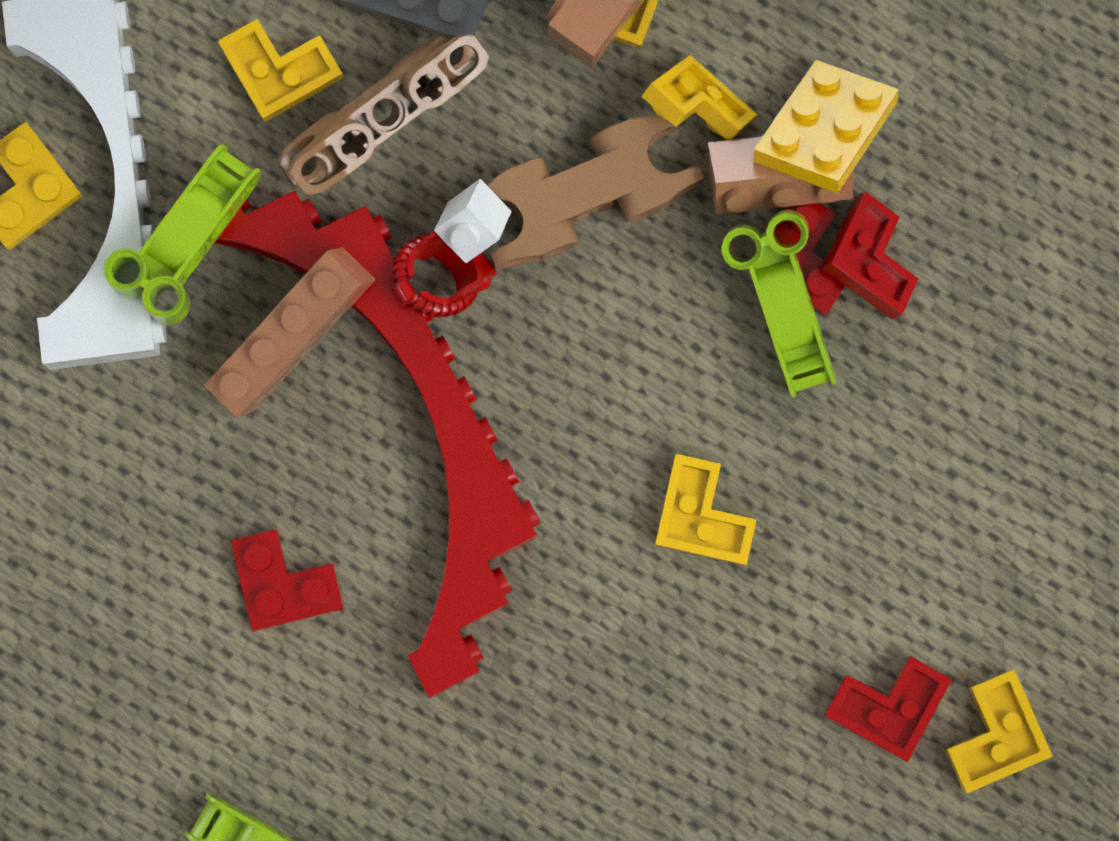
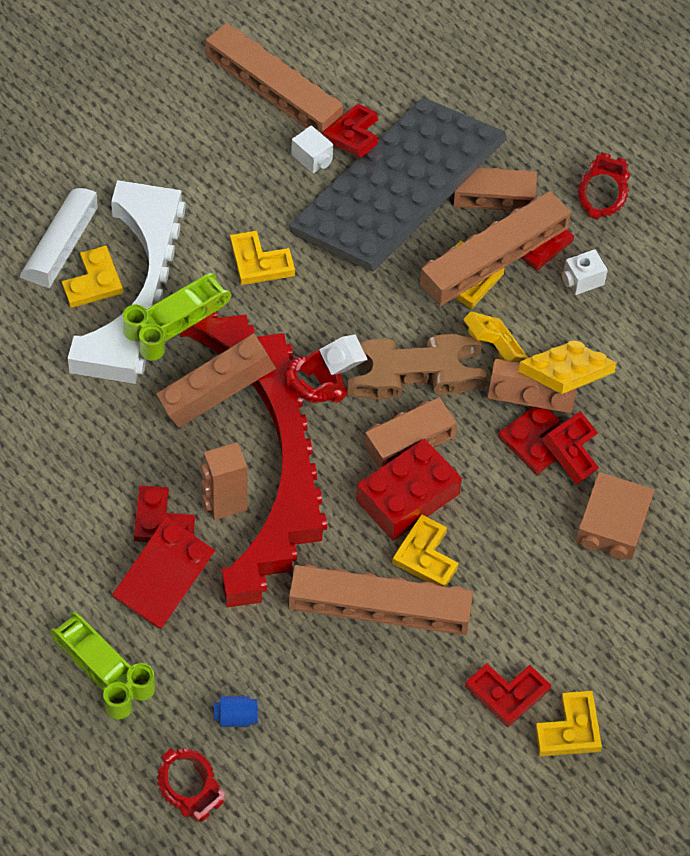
camera: 20 degrees right, 25 degrees down
(320, 687) = (163, 573): none -> red slope
(363, 516) = (224, 481): none -> nougat brick
(409, 98) = (330, 283): medium nougat piece -> none
(614, 314) = (427, 421): none -> nougat brick
(643, 416) = (407, 487): none -> red brick
(659, 618) = (380, 599): none -> nougat brick
(785, 302) = (513, 447): lime piece -> none
(967, 361) = (615, 516): none -> nougat brick

